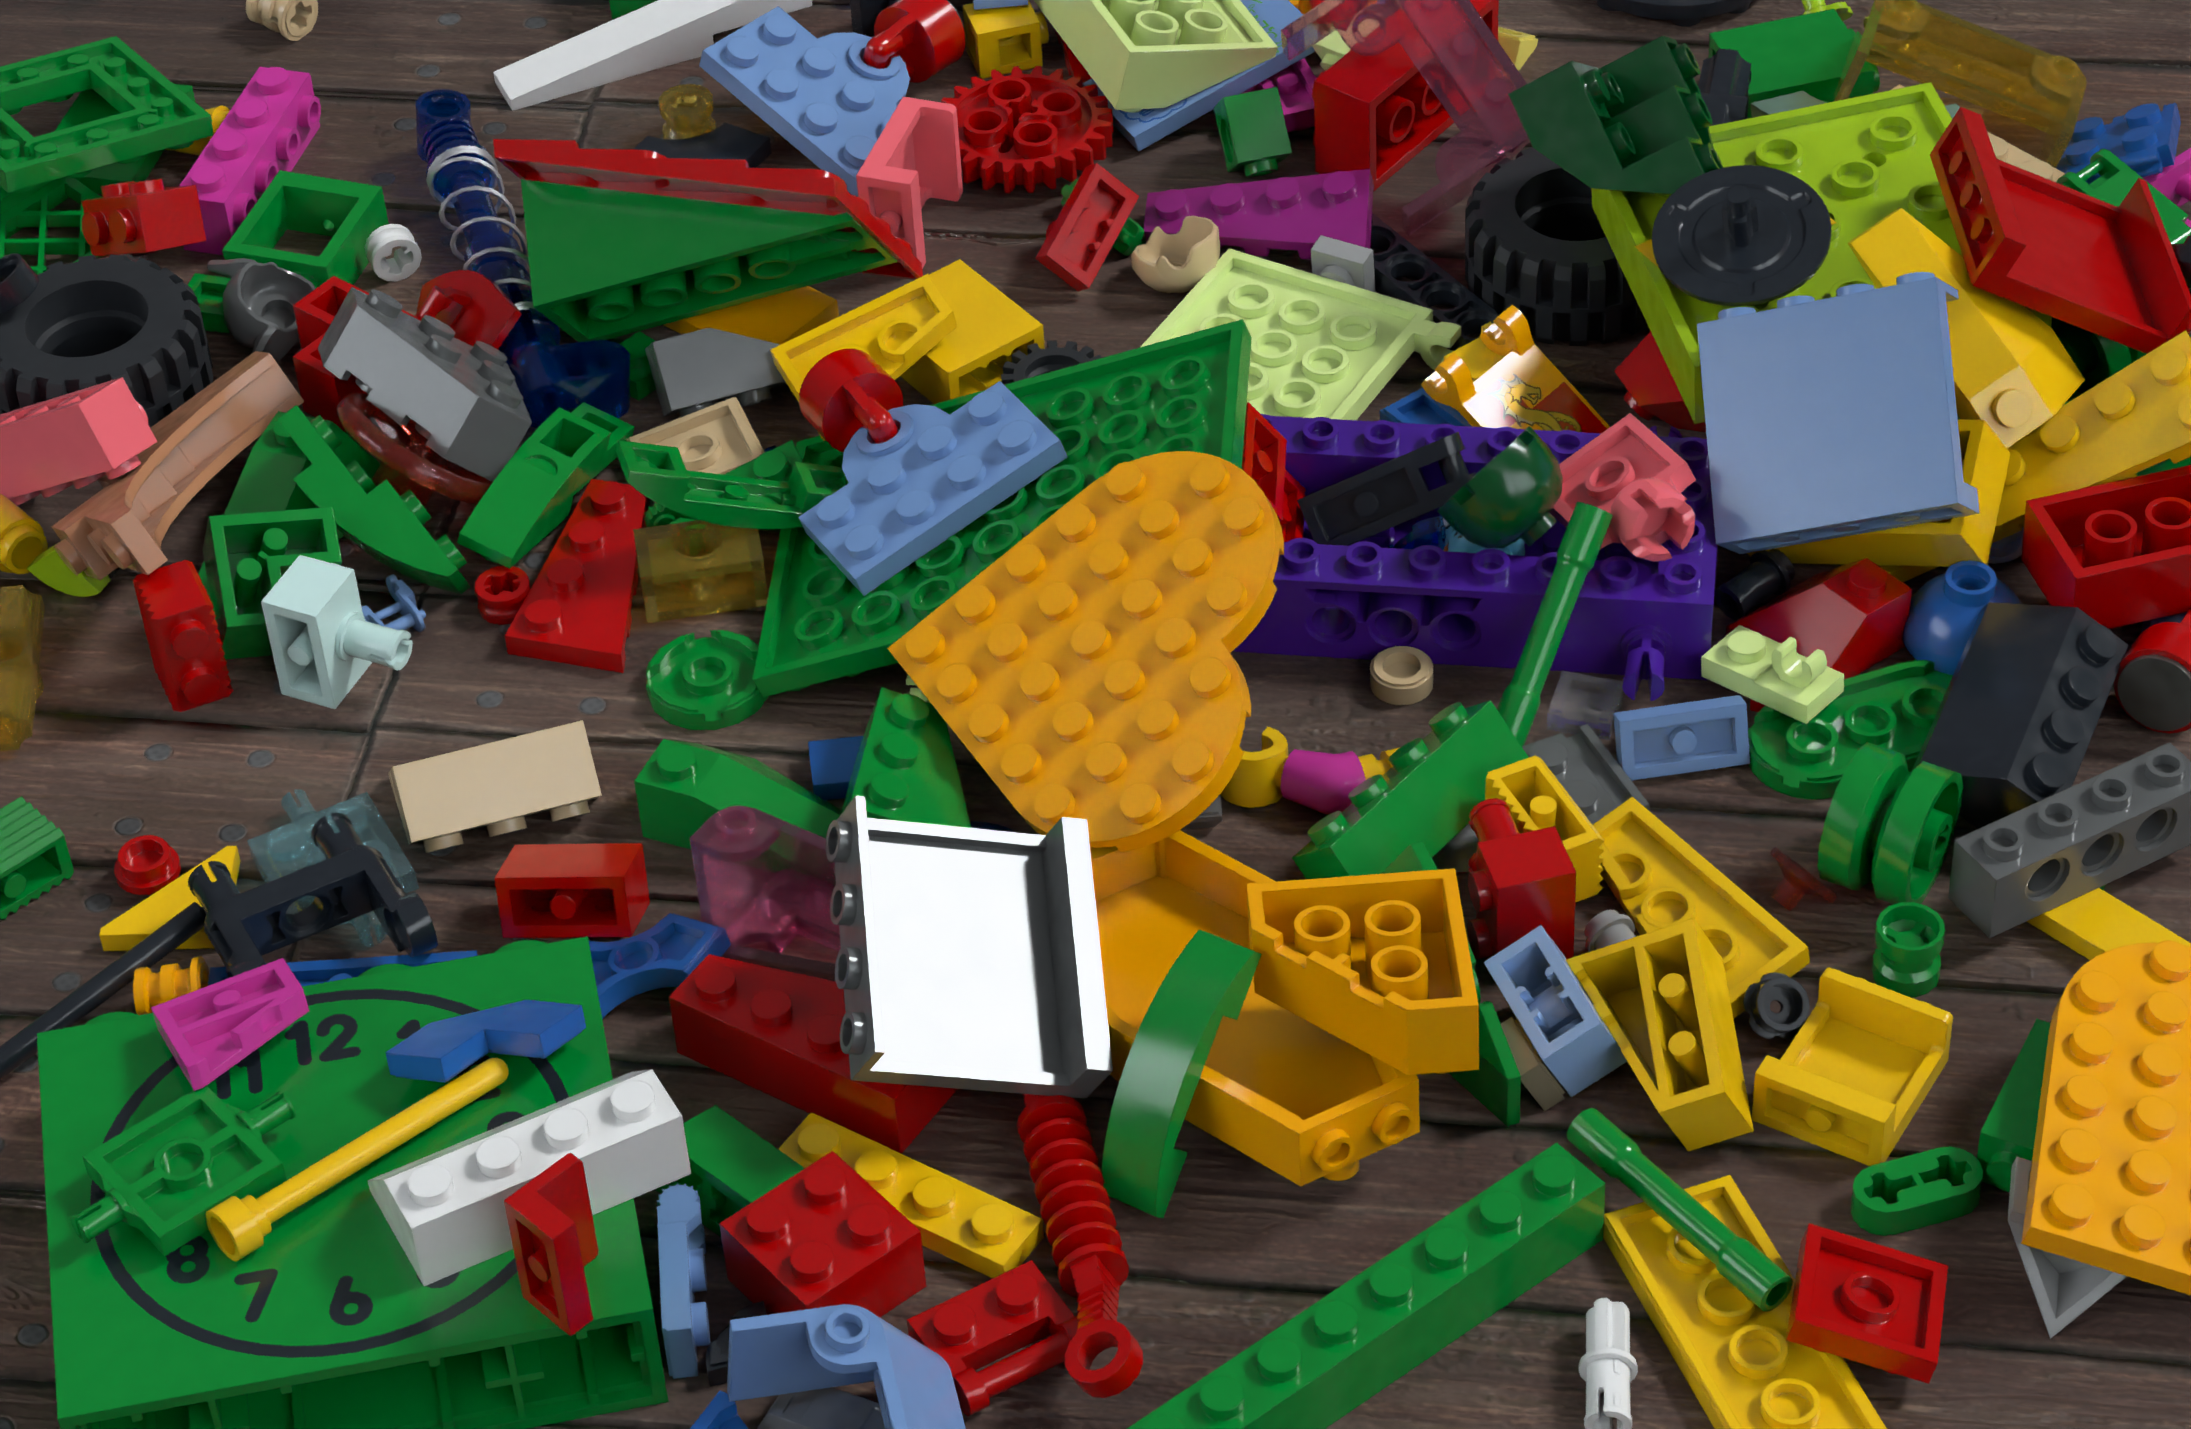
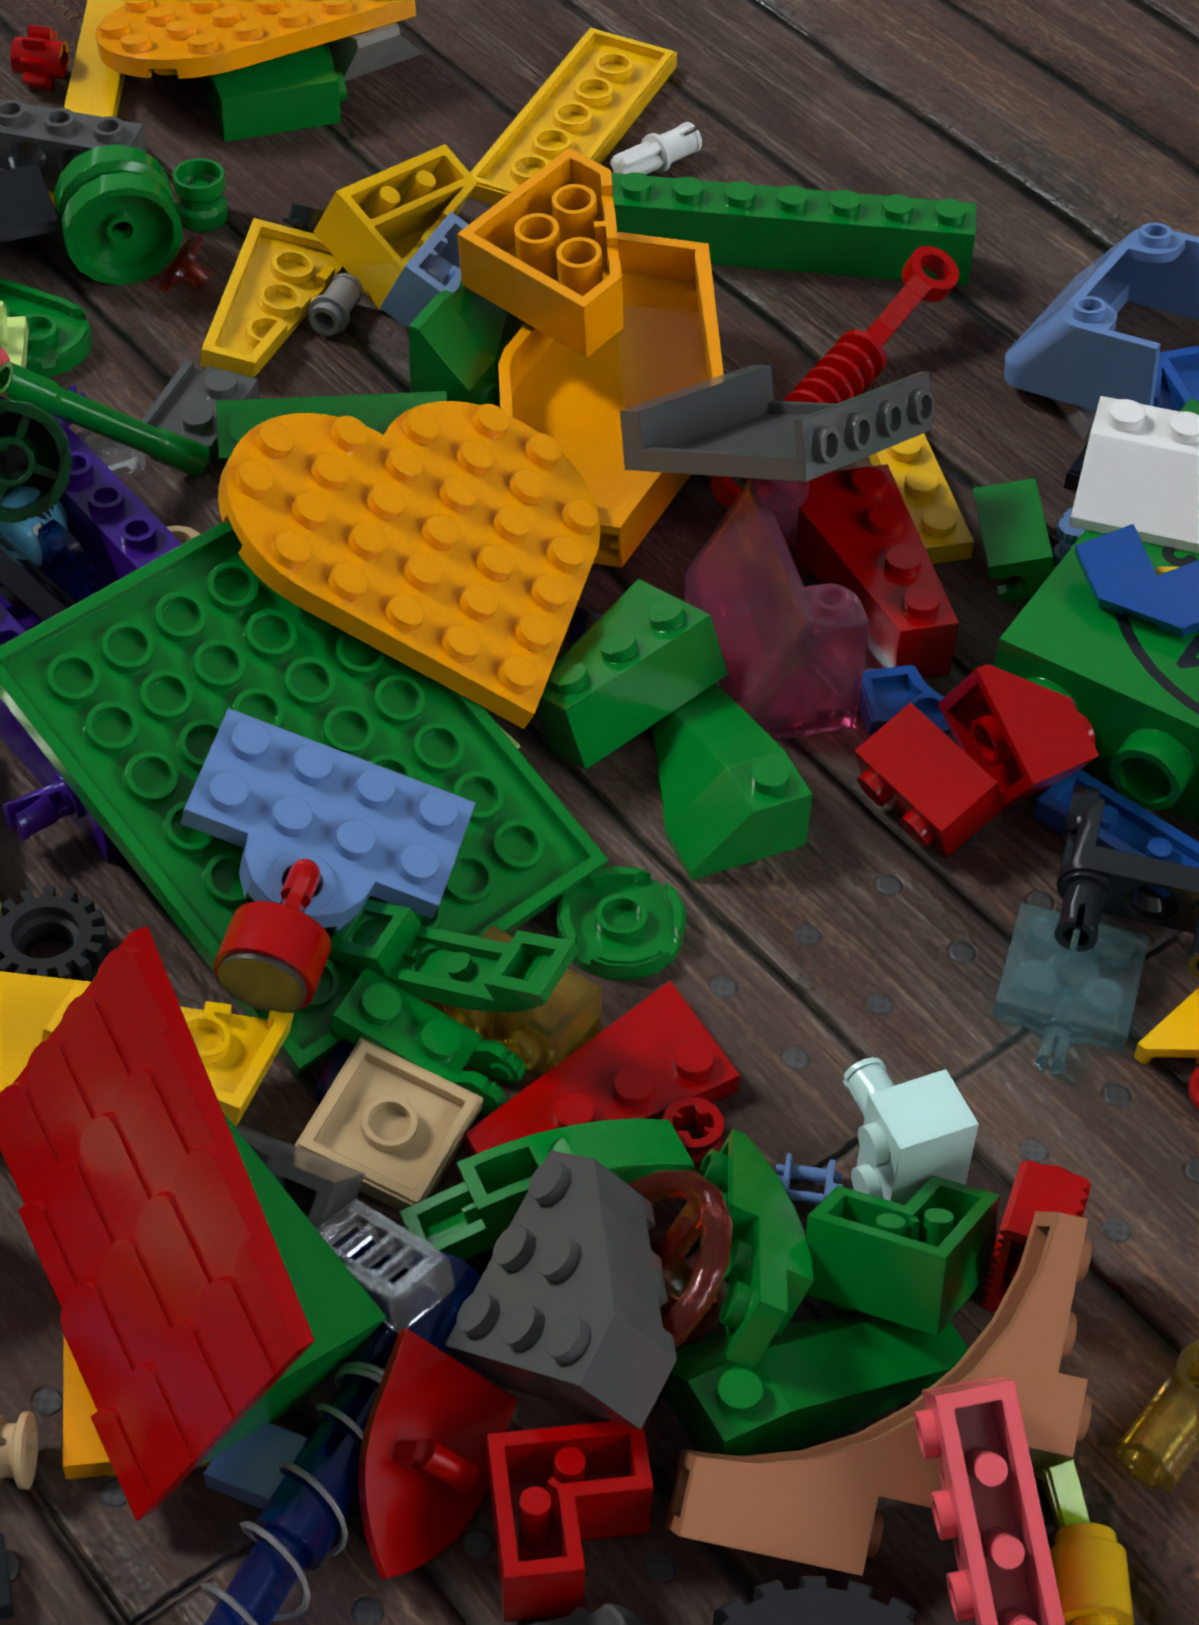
camera: 140 degrees left, 5 degrees up
(495, 786) = (885, 938): tan slope -> none
(514, 897) = (1018, 731): none -> red slope
(579, 339) = (416, 1291): none -> clear slope
(823, 1244) = (1012, 439): red brick -> none
(833, 765) = (617, 776): blue tile -> none
(993, 1323) = (956, 388): red plate -> none
(1165, 1067) = (680, 307): green slope -> none
(1518, 883) = (365, 326): red brick -> none
(1542, 802) = (288, 353): yellow brick -> none
(1682, 737) = (87, 363): medium blue tile -> none
(1733, 1256) = (532, 133): green piece -> none
(1854, 1069) = (315, 173): yellow panel -> none
(1868, 1303) = (502, 81): red plate -> none
(1916, 1190) = (384, 122): green beam -> none

